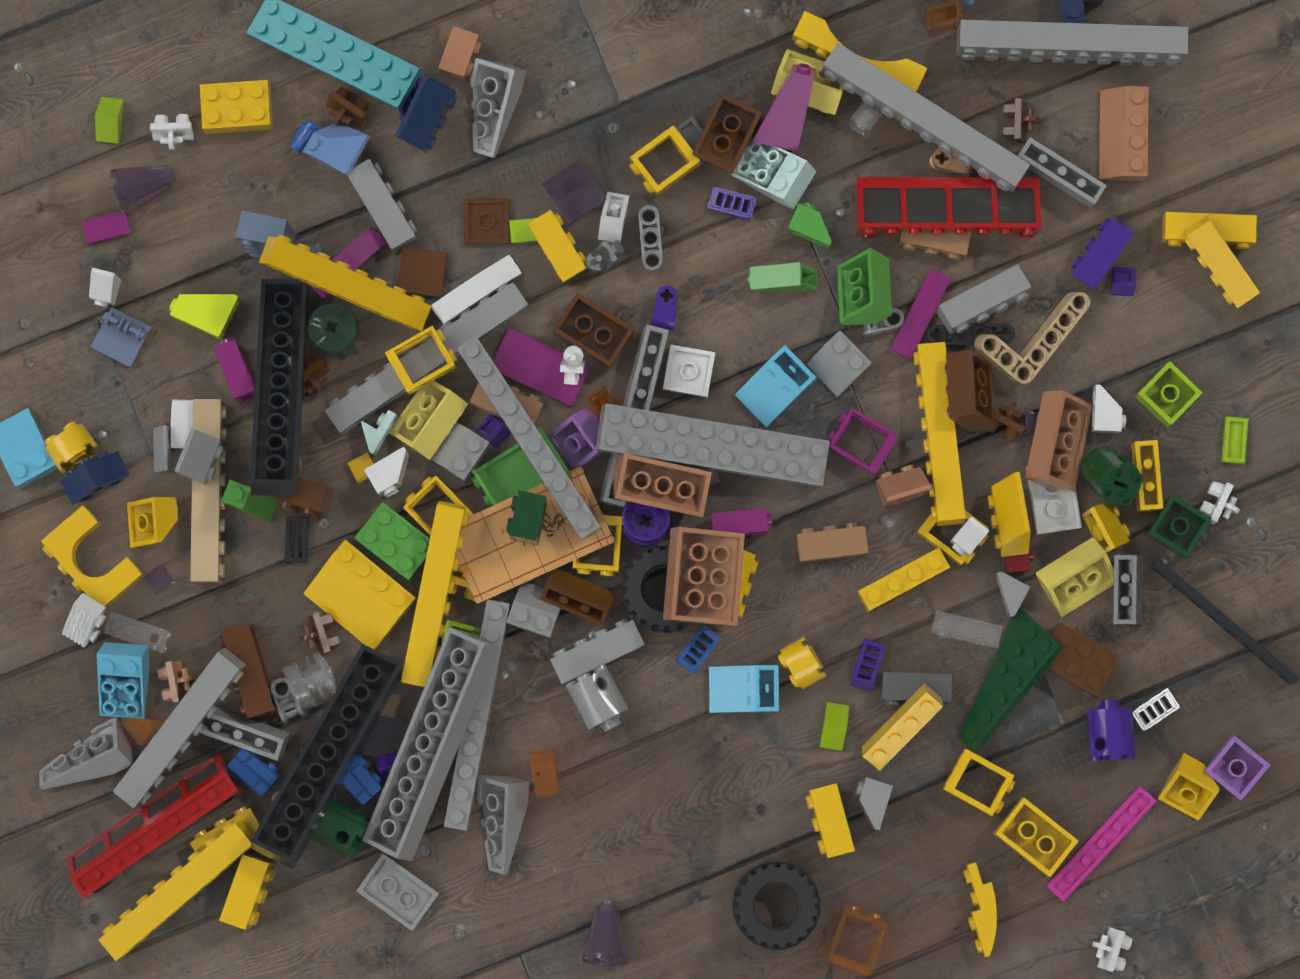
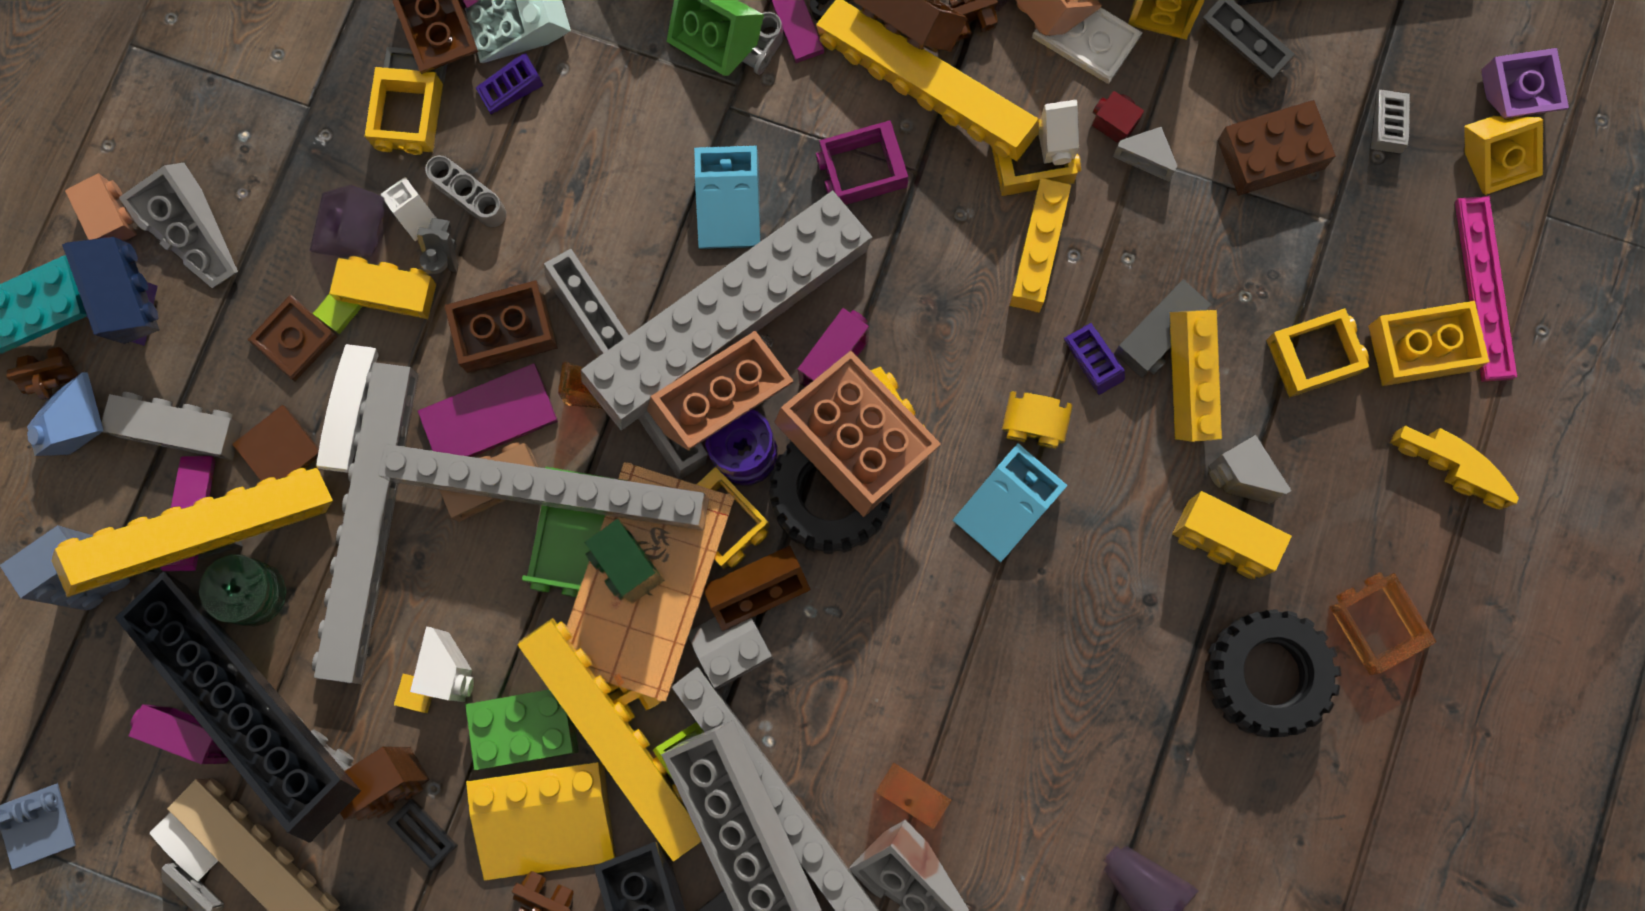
camera: 45 degrees left, 5 degrees down
(199, 456) = (224, 861): light grey slope -> none
(206, 311) = (95, 709): neon yellow slope -> none
(240, 498) = (327, 849): bright green slope -> none
(303, 135) = (20, 440): blue cone -> none
(314, 374) = (269, 657): reddish brown hips -> none
(376, 437) = (396, 647): light aqua slope -> none
(413, 341) = (331, 517): yellow window -> none
(427, 486) = (497, 642): yellow window -> none
(428, 419) = (429, 576): light yellow slope -> none
(461, 451) = (492, 574): light grey slope -> none
(493, 431) = (506, 522): dark purple slope -> none
(572, 364) = (506, 367): white hips -> none
(577, 438) = (594, 441): medium lavender slope -> none
(597, 652) = (832, 621): light grey brick -> none
(597, 699) = (883, 664): light grey cylinder -> none
(664, 312) = (549, 240): dark purple piece -> none
(688, 371) = (632, 271): white plate -> none
(688, 665) = (929, 539): blue slope -> none
(783, 278) = (627, 97): bright green slope -> none
(809, 225) = (603, 29): bright green slope -> none
(832, 542) = (937, 283): medium nougat brick -> none
(834, 726) = (1130, 446): lime slope -> none
(838, 363) = (764, 117): light grey slope -> none
(902, 486) = (945, 160): nougat slope -> none
(966, 629) = (1145, 230): clear plate -> none
(1009, 516) = (1069, 72): yellow slope -> none
(1016, 668) = (1233, 212): dark green wing -> none
(1077, 576) = (1189, 76): light yellow slope -> none
(1109, 949) = (1611, 370): white hips -> none
(1111, 732) = (1375, 170): dark purple cylinder -> none

